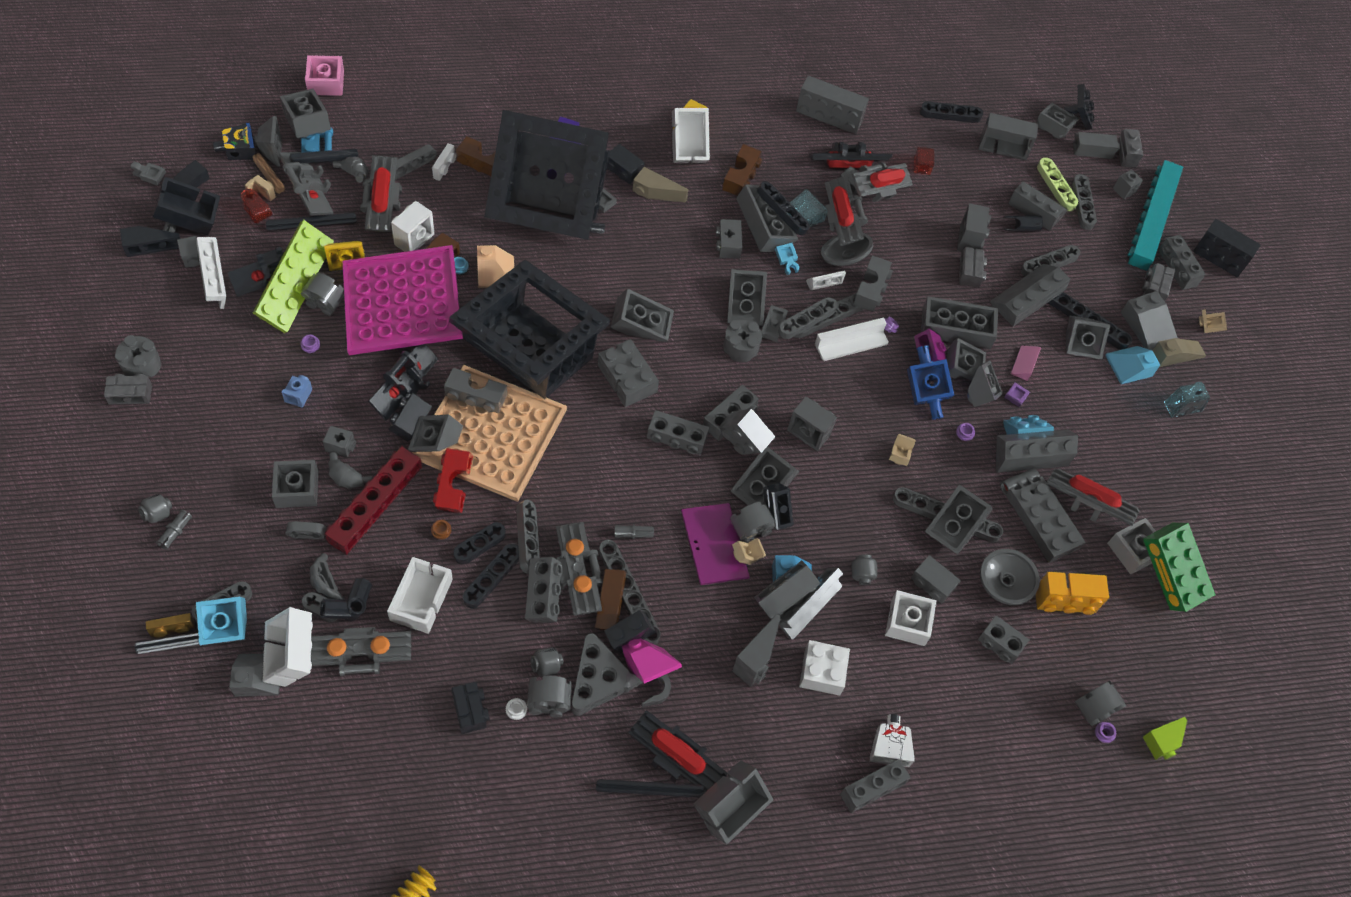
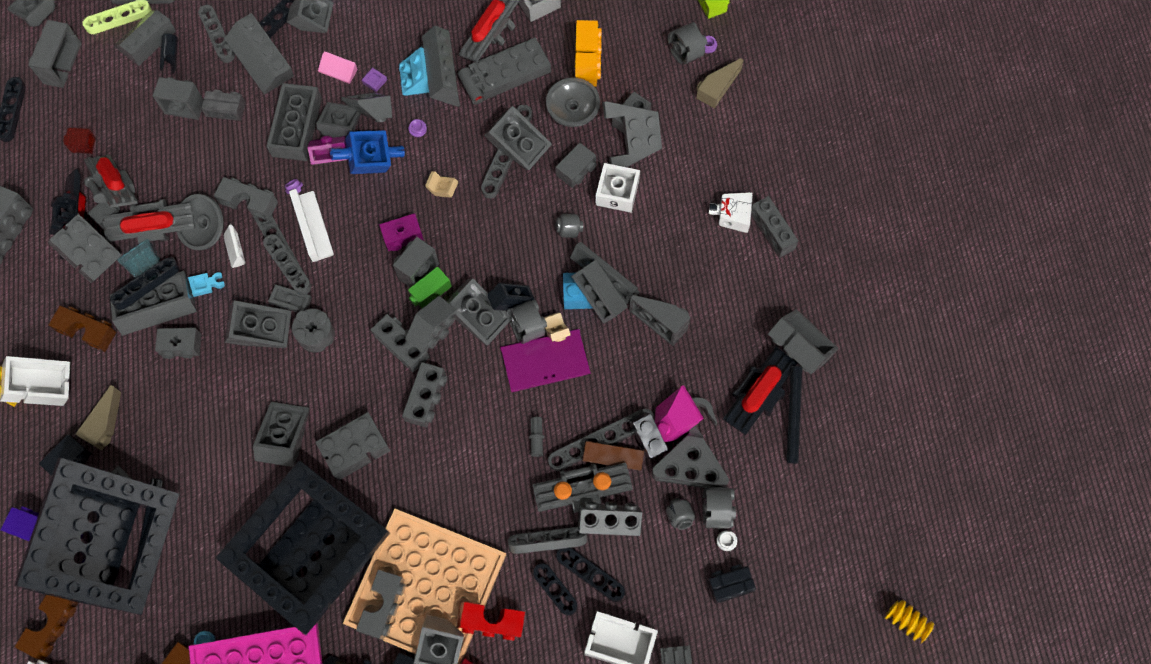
camera: 80 degrees left, 10 degrees up
(441, 529) = (541, 631): dark orange plate -> none
(492, 264) = (210, 599): light nougat slope -> none
(788, 437) = (429, 288): none -> bright green brick
(814, 163) = (85, 246): none -> dark grey piece
(824, 668) = (669, 263): white brick -> none
(849, 416) = (400, 232): none -> magenta brick
(981, 644) = (640, 132): none -> dark grey wing
(1054, 738) = (716, 84): none -> dark tan slope

